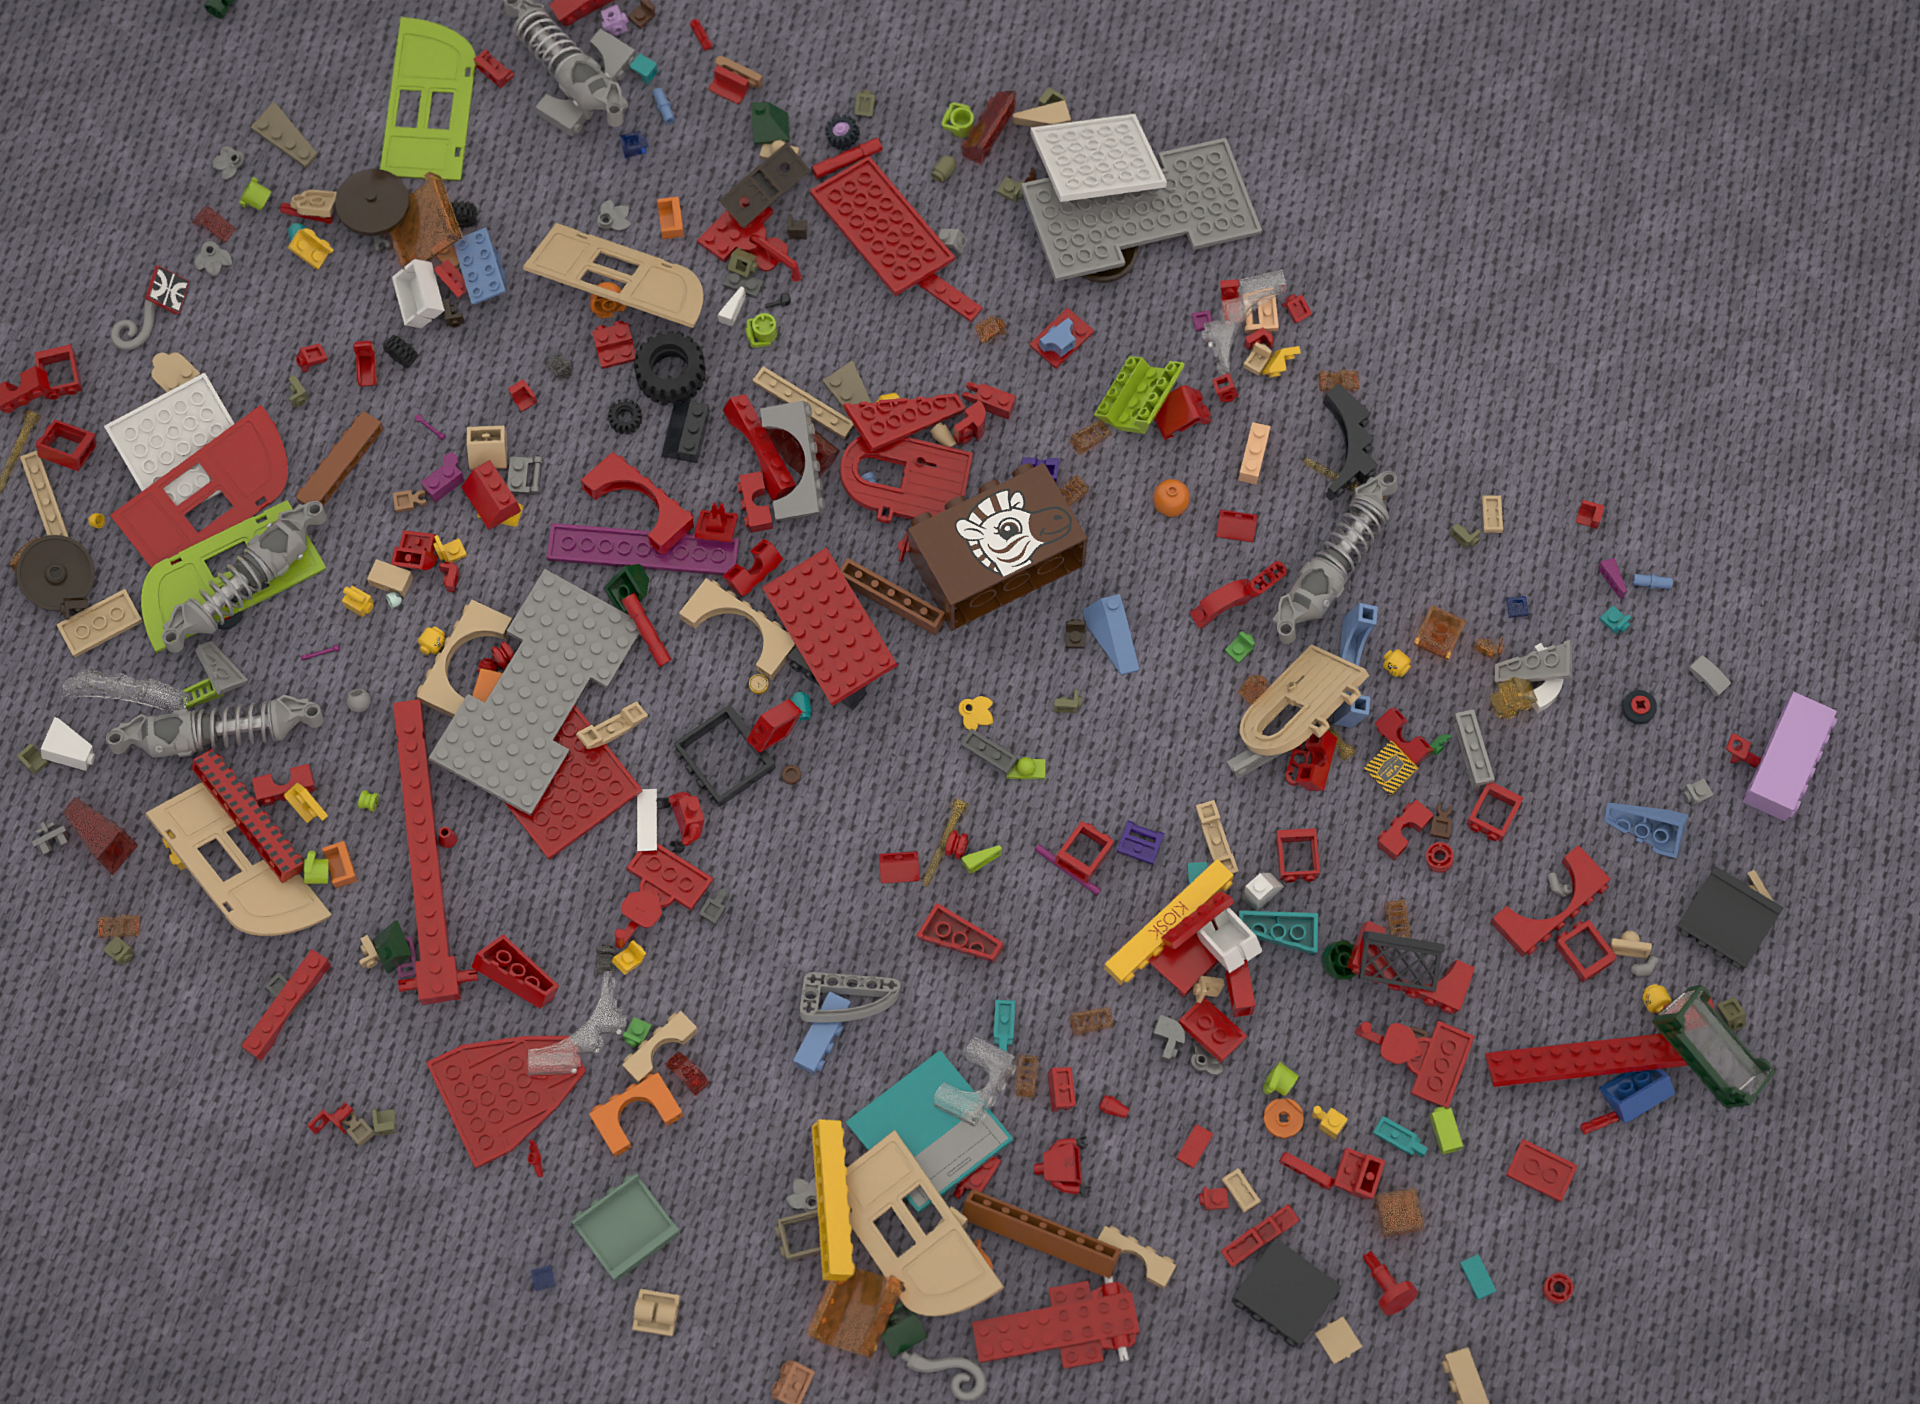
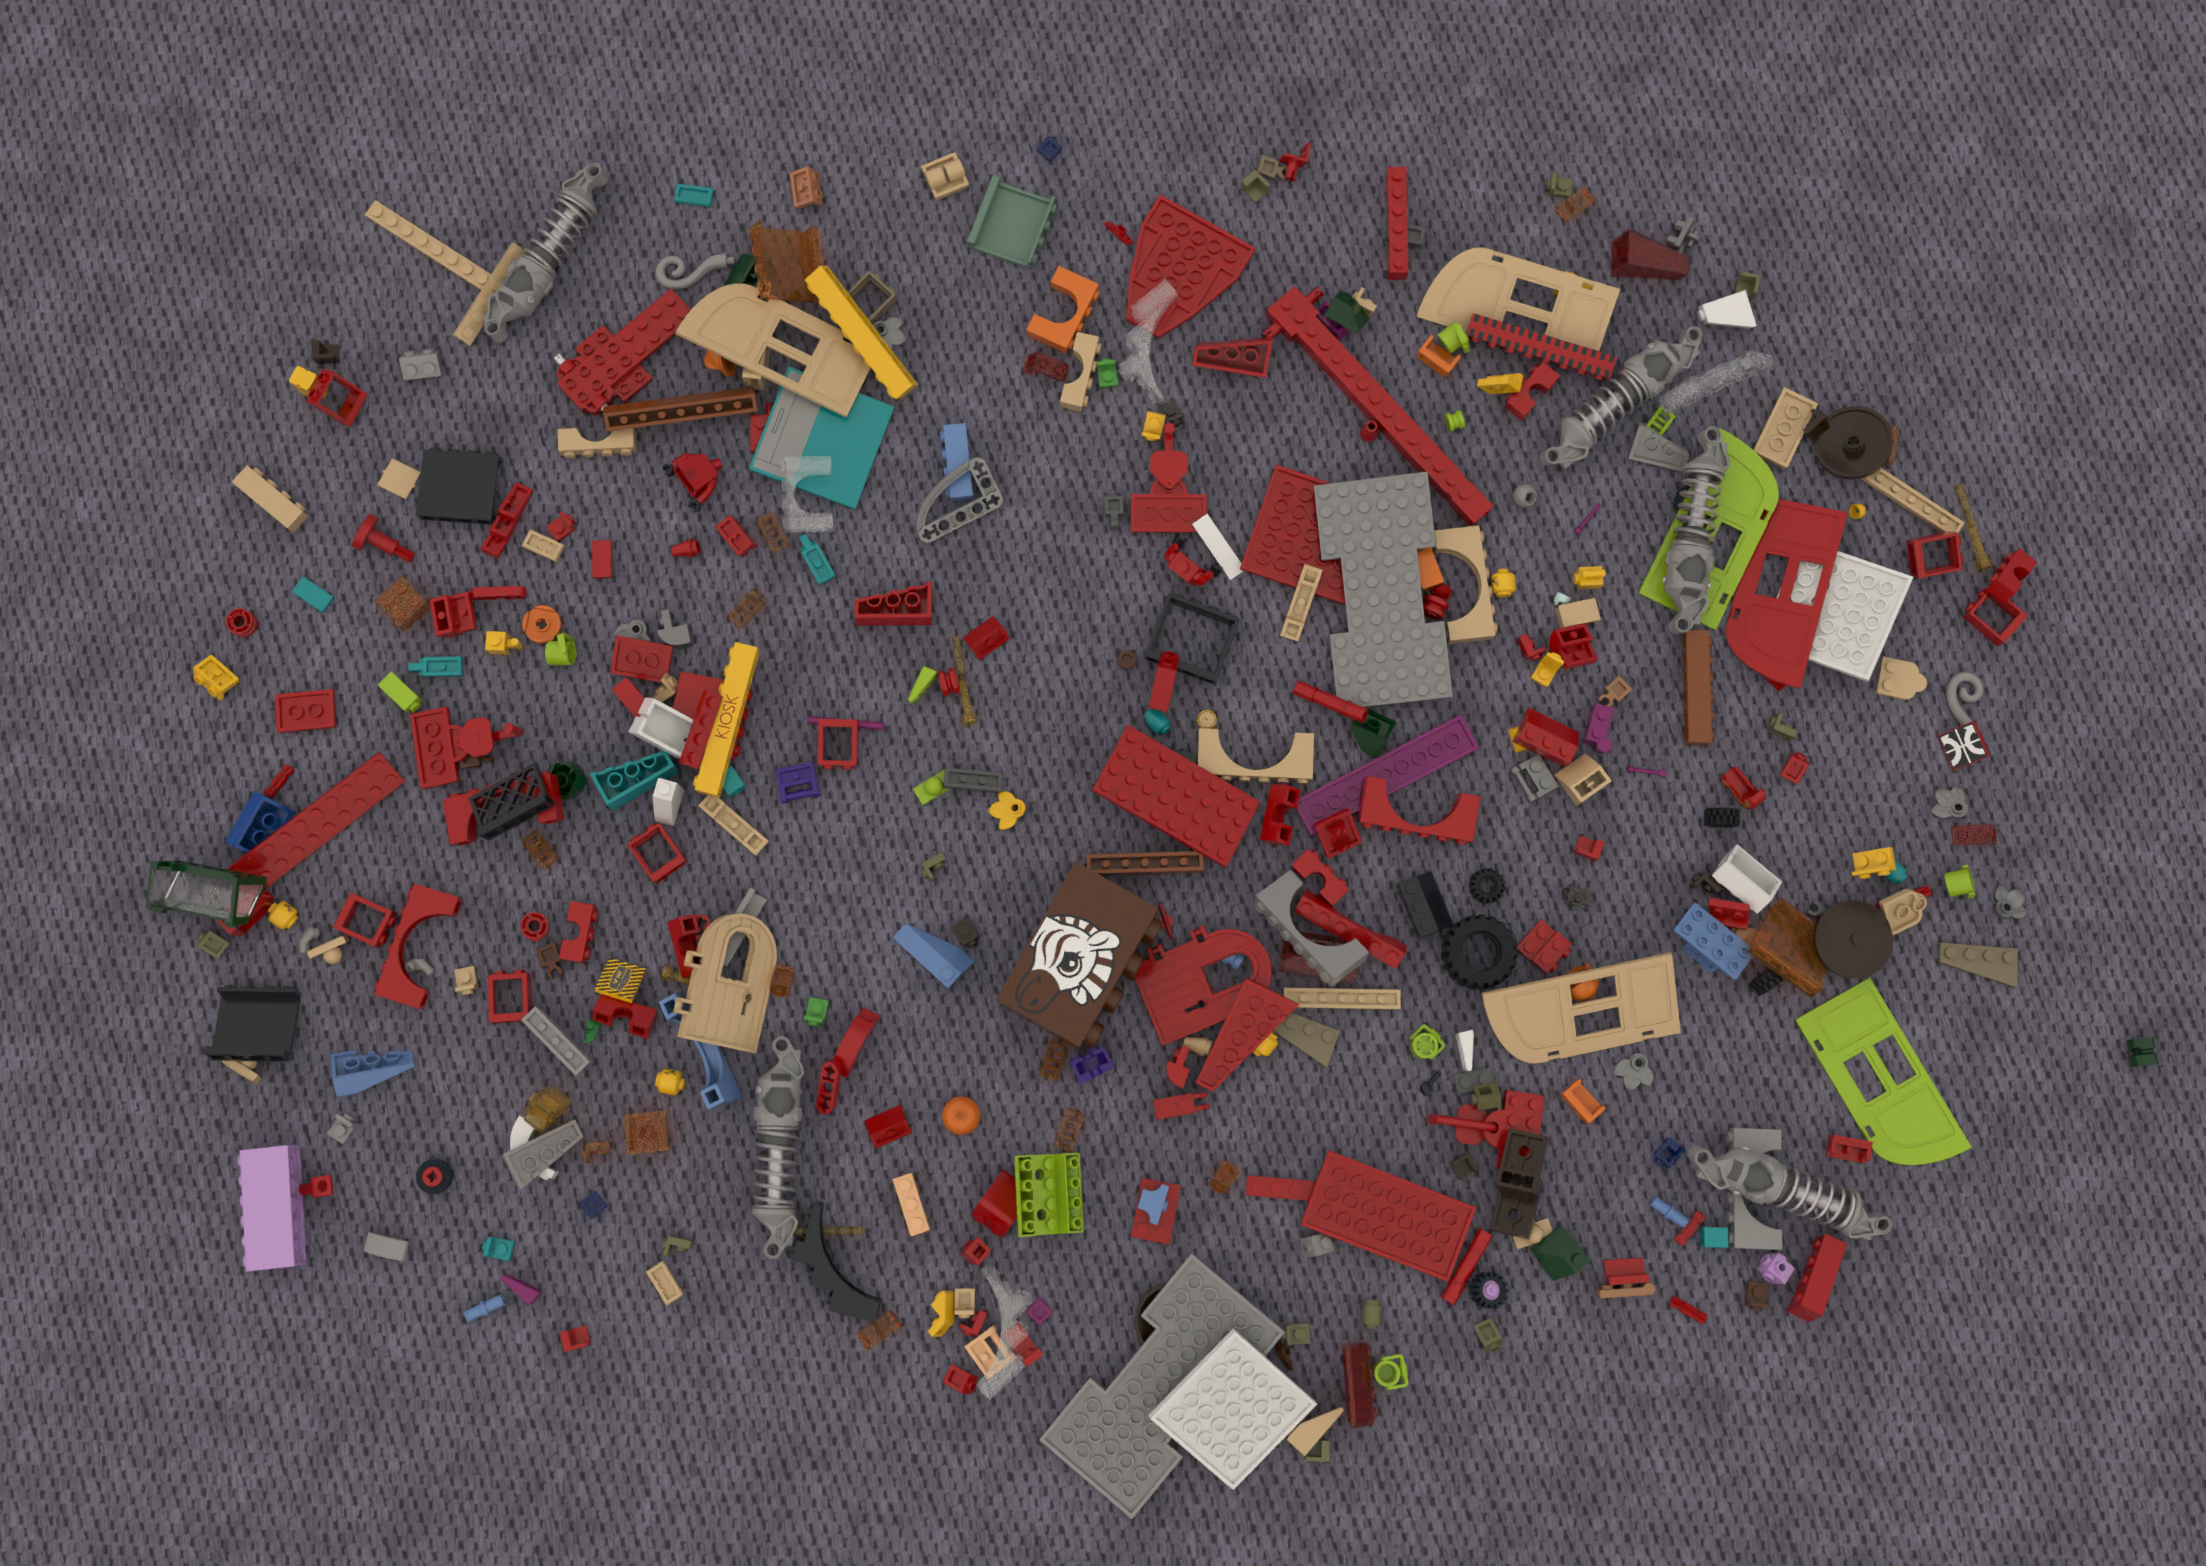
camera: 145 degrees right, 10 degrees up
(645, 90) = (1690, 1228): none -> red axle
(1525, 849) = (466, 980): none -> tan bracket
(1608, 1252) = (214, 677): none -> yellow bracket

